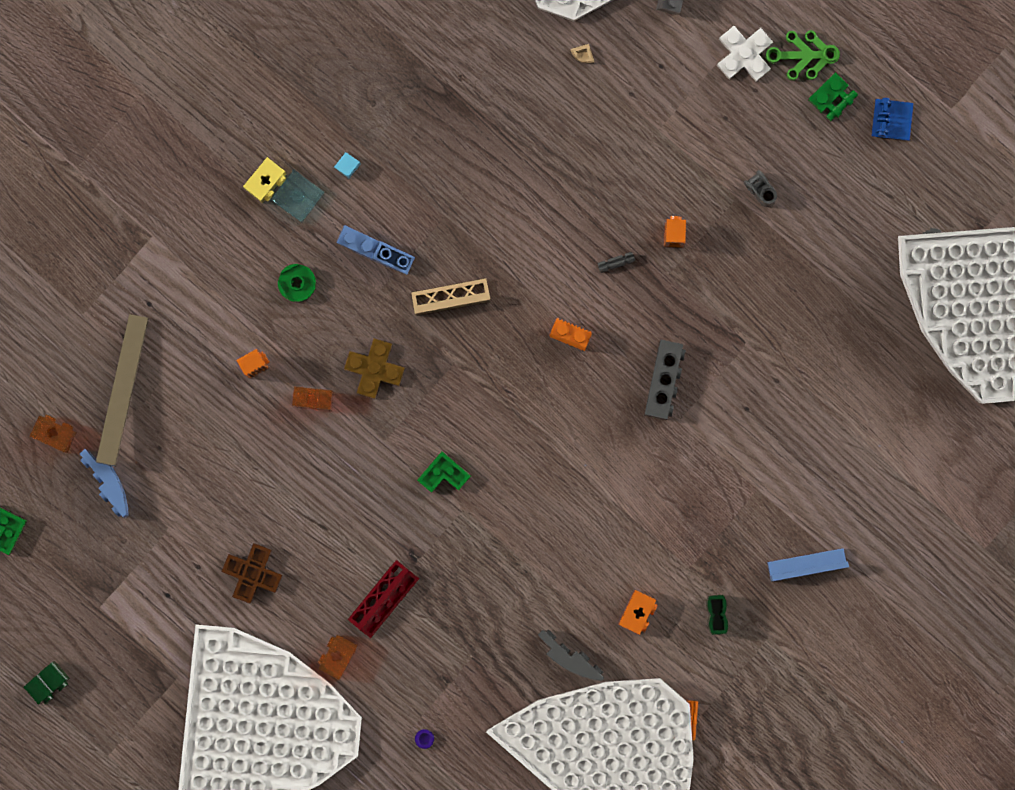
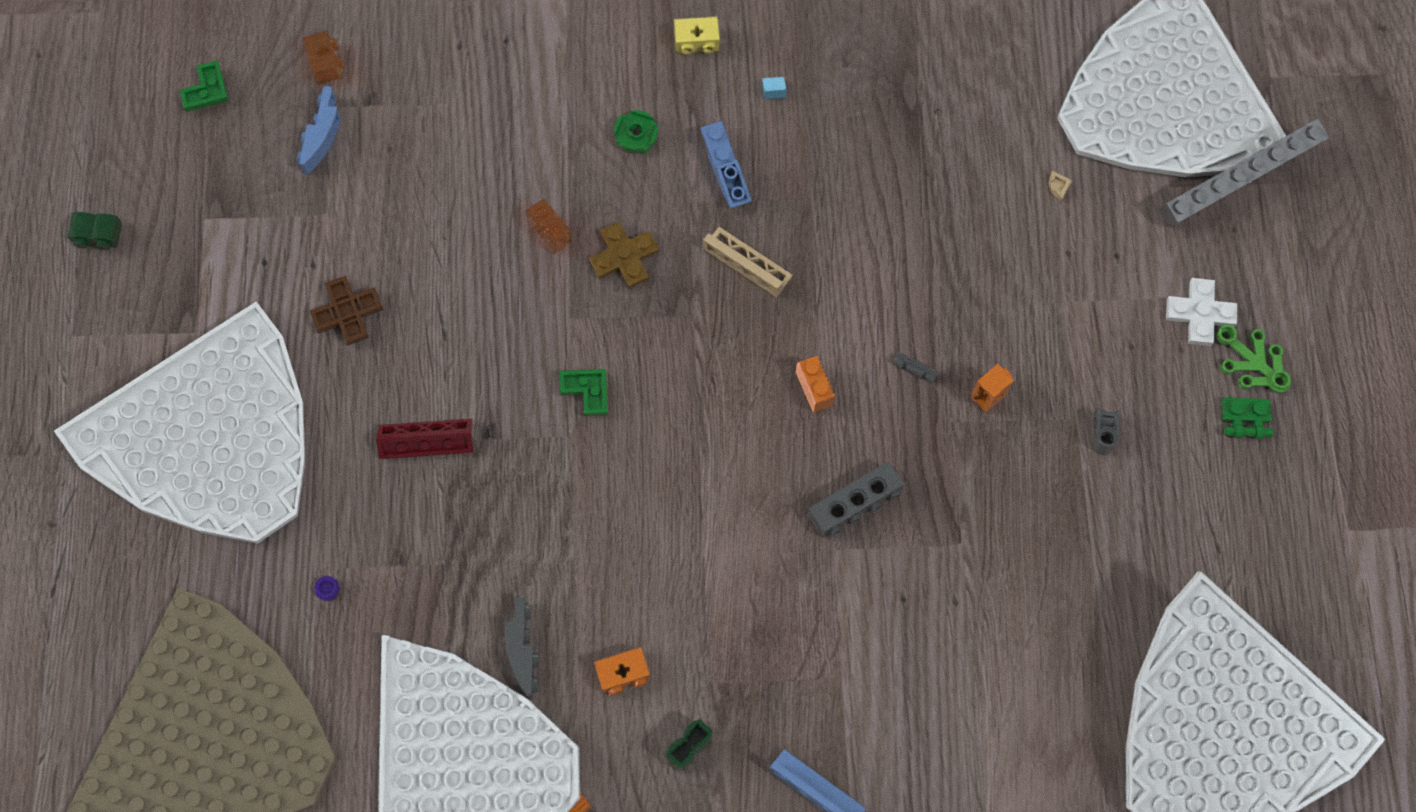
camera: 40 degrees right, 15 degrees down
(122, 390) = (409, 75): dark tan tile -> none
(253, 363) = (532, 151): orange brick -> none
(297, 196) = (709, 72): clear light blue plate -> none
(346, 650) = (347, 447): clear orange brick -> none
(892, 119) = (1284, 485): blue hinge -> none

